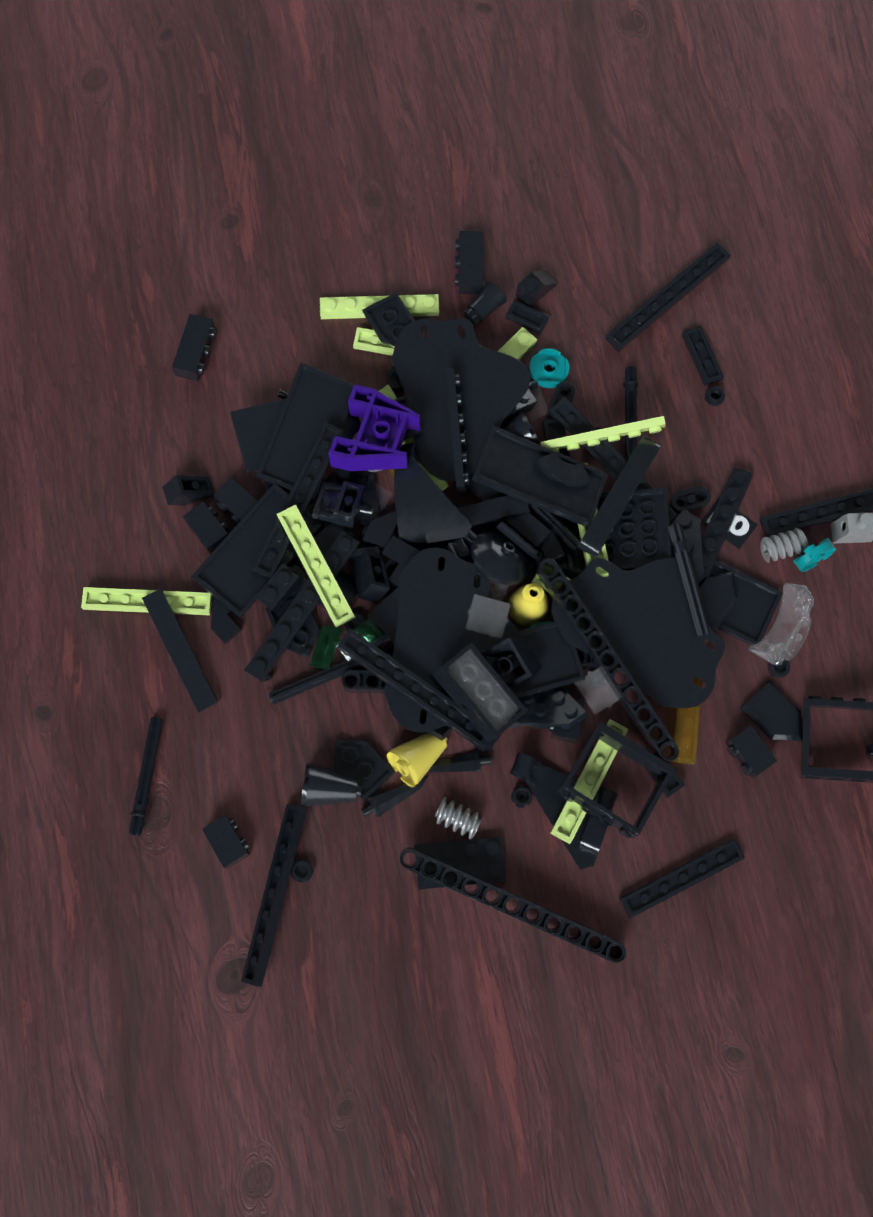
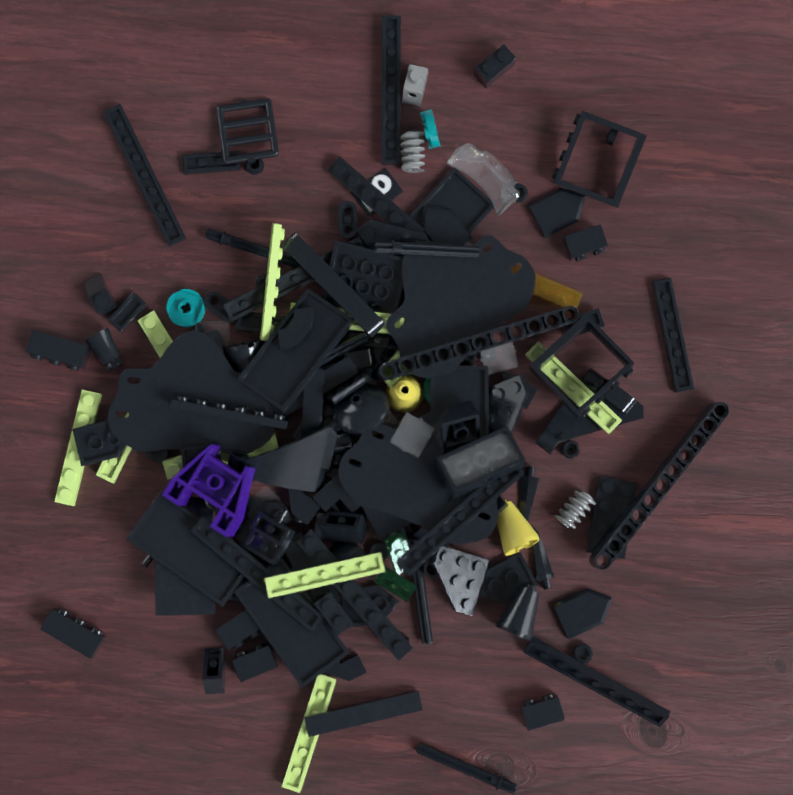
camera: 70 degrees left, 10 degrees up
(347, 858) = (582, 611): none -> black tile
(351, 712) = (460, 577): none -> plate
(749, 402) = (223, 126): none -> black bar

